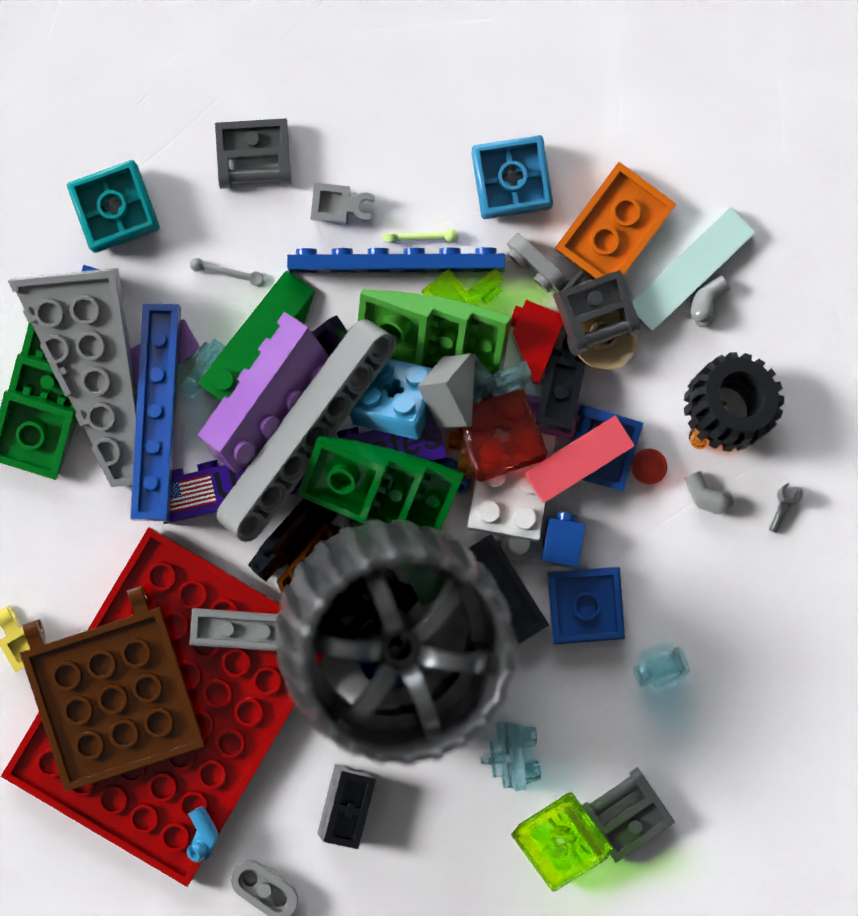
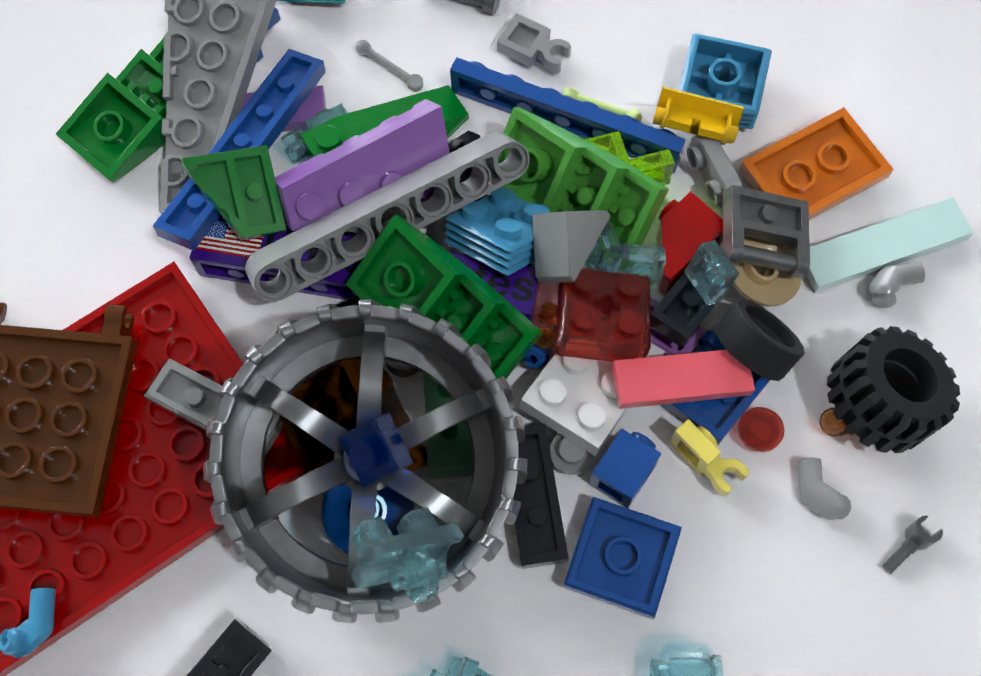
camera: 30 degrees right, 20 degrees down
(182, 459) = (240, 189): none -> green wing
(411, 651) = (376, 450): none -> clear blue plate
(467, 709) = (409, 560): none -> clear light blue hips
(489, 229) = (698, 115): none -> yellow hinge
(569, 368) = (711, 272): none -> clear light blue plate
(609, 501) = (700, 451): none -> light yellow plate
(617, 417) = (759, 340): none -> black tyre

